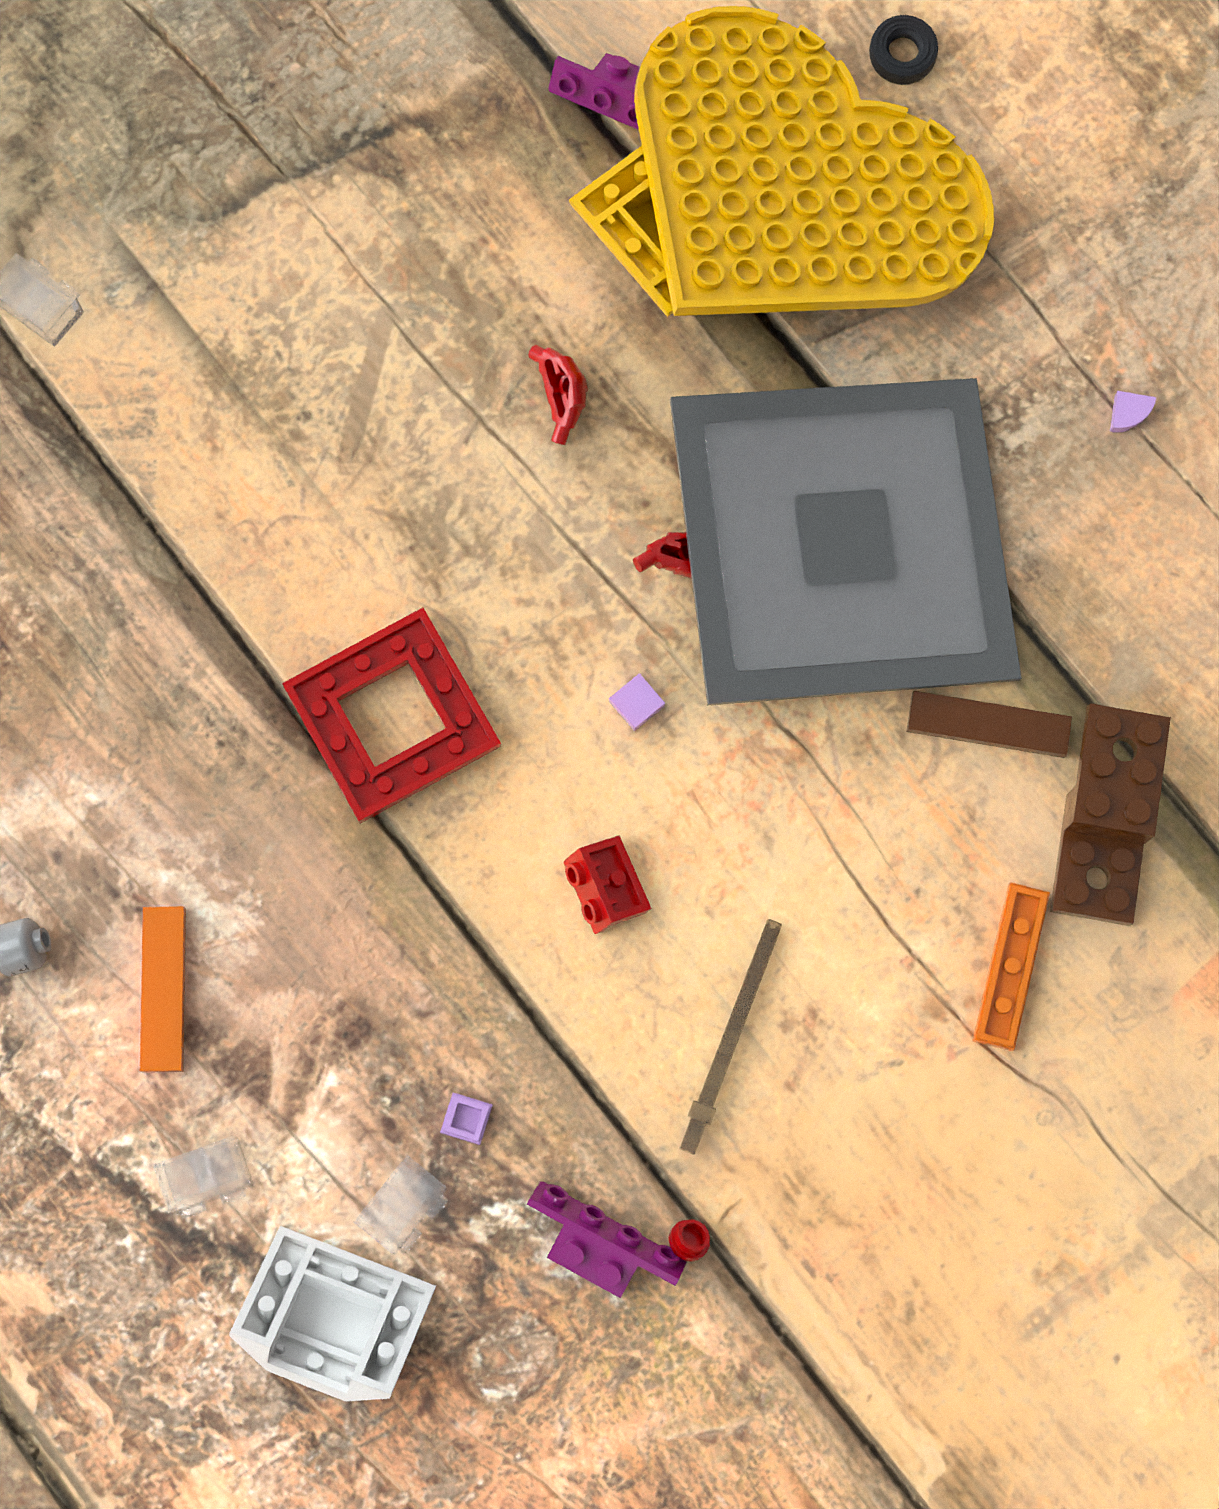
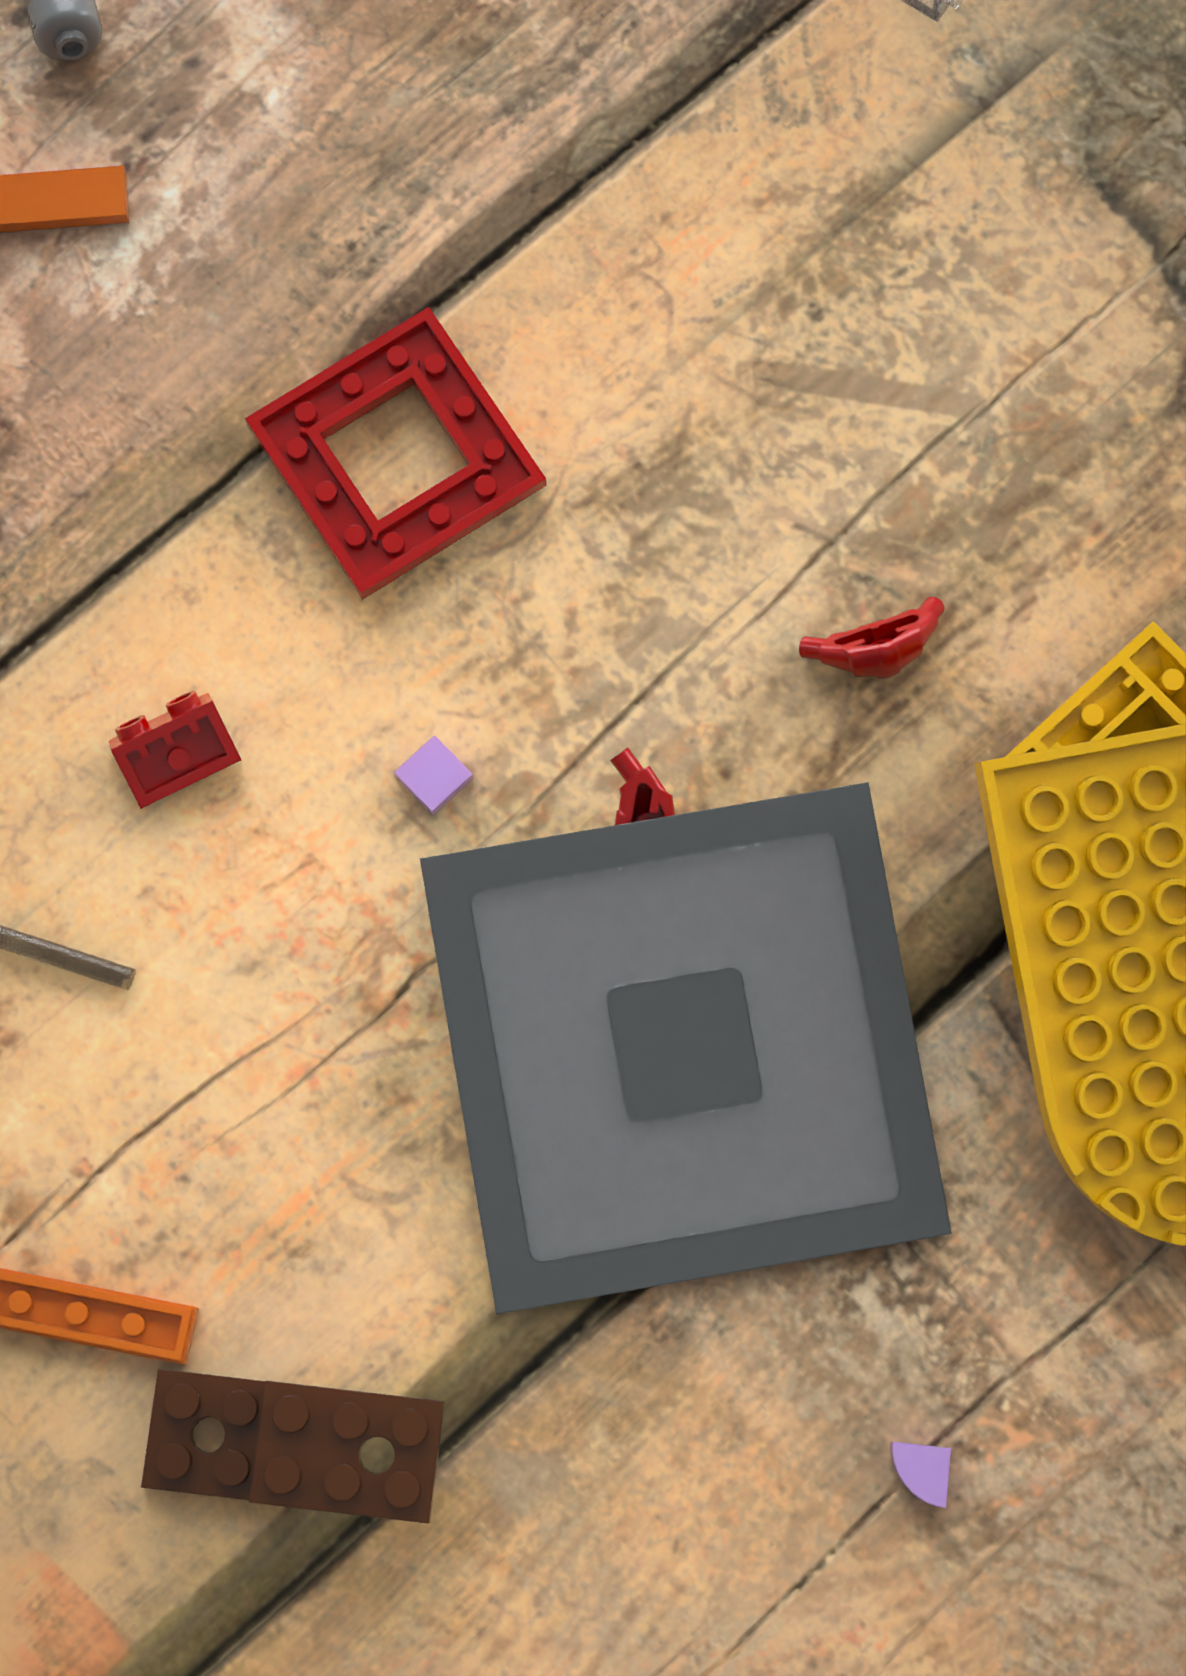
camera: 90 degrees right, 0 degrees up
(989, 724) = (428, 1271): reddish brown tile -> none

